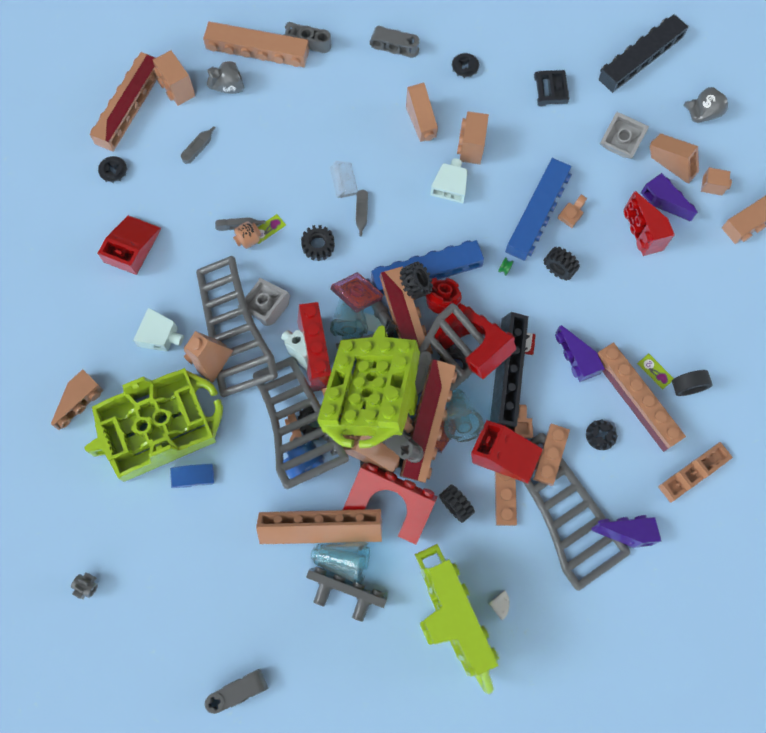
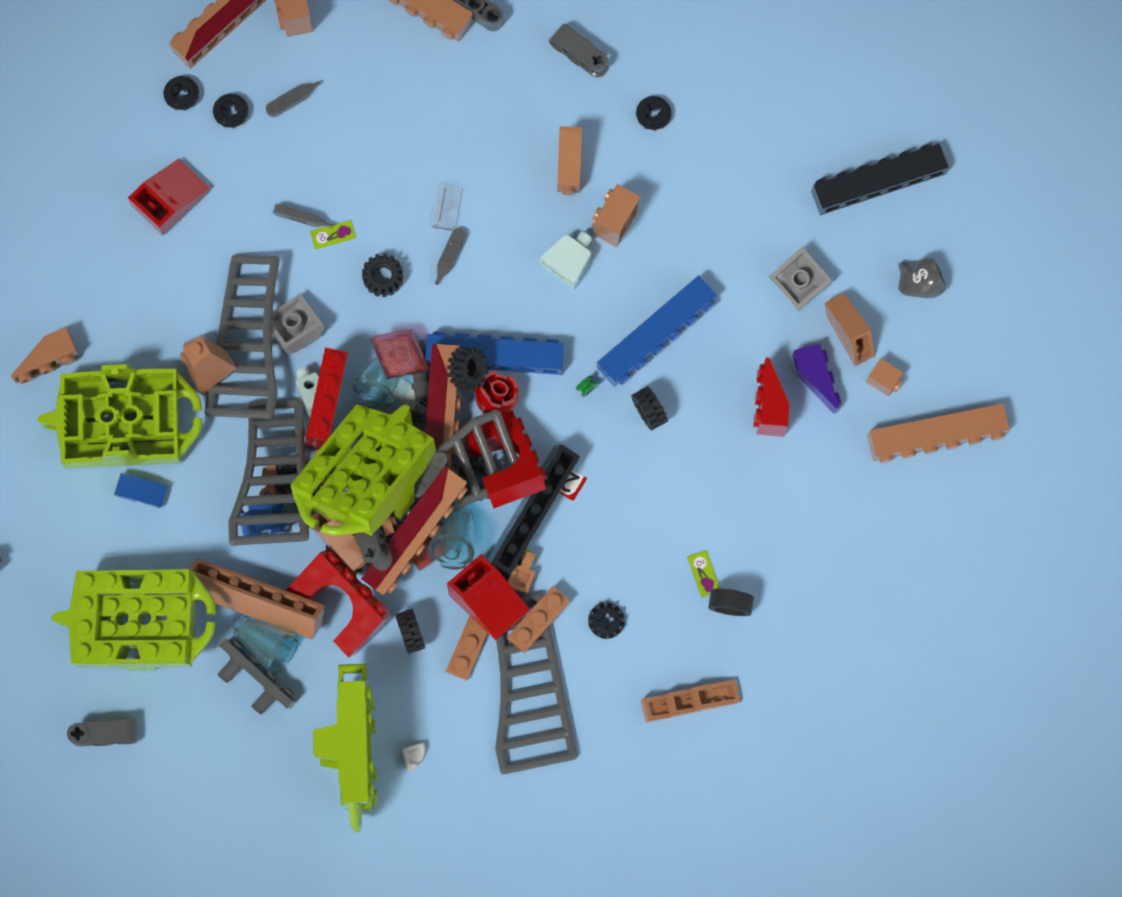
camera: 20 degrees right, 5 degrees up
(150, 163) = (226, 102): none -> black gear
(157, 332) = (161, 314): light aqua torso -> none
(225, 78) = (356, 27): dark grey piece -> none
(247, 234) = (304, 235): nougat head -> none
(257, 595) = (159, 643): none -> lime piece
(557, 87) = (752, 184): black plate -> none
(572, 213) = (695, 351): nougat plate -> none
(582, 358) = (624, 526): dark purple slope -> none
(634, 533) = (589, 738): dark purple slope -> none
(640, 398) = (665, 594): nougat brick -> none

